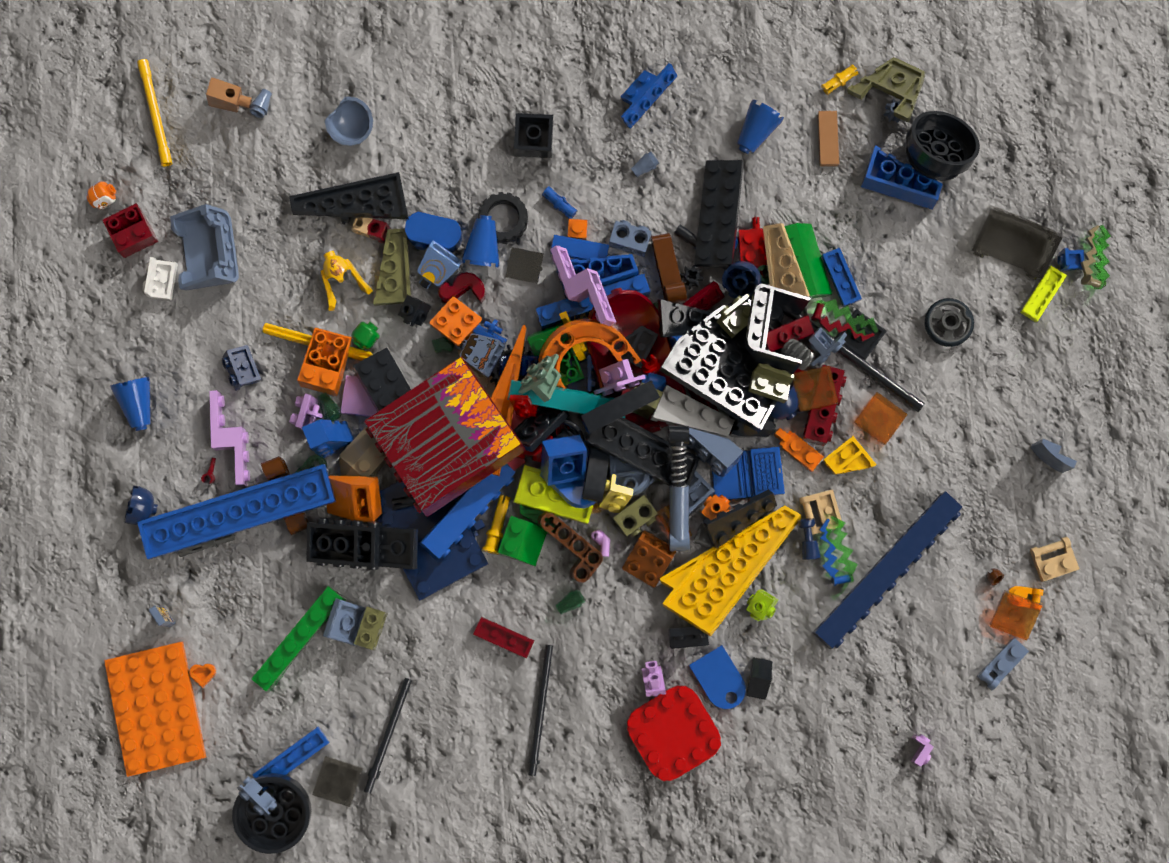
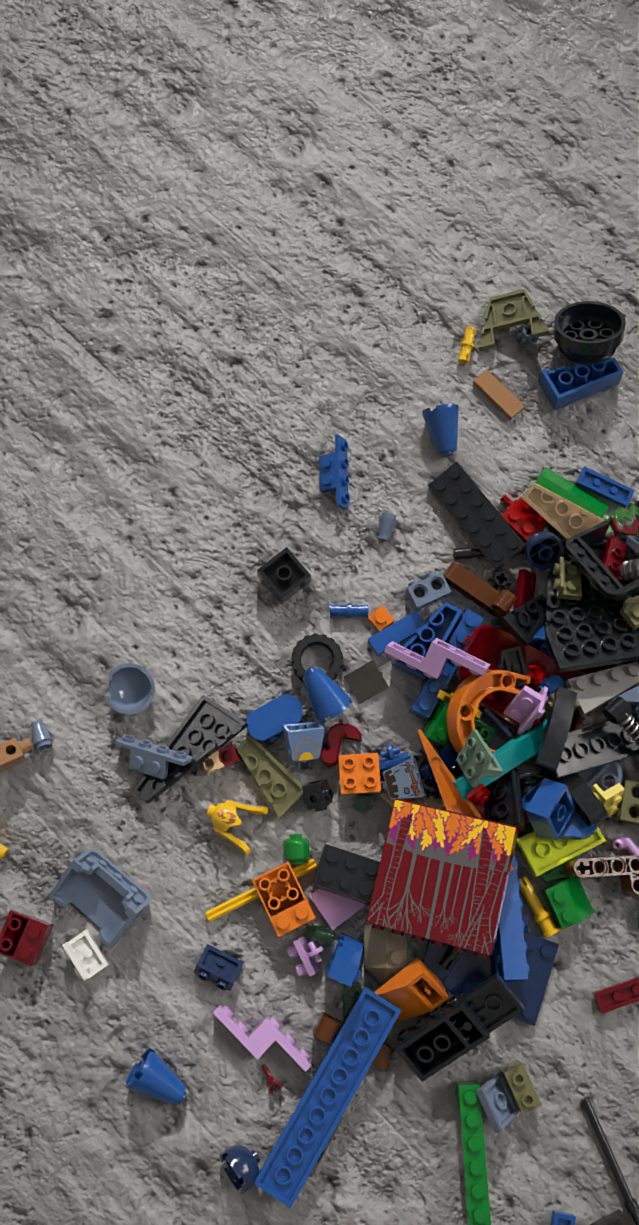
camera: 45 degrees left, 5 degrees down
(321, 182) = (151, 758): none -> sand blue bracket

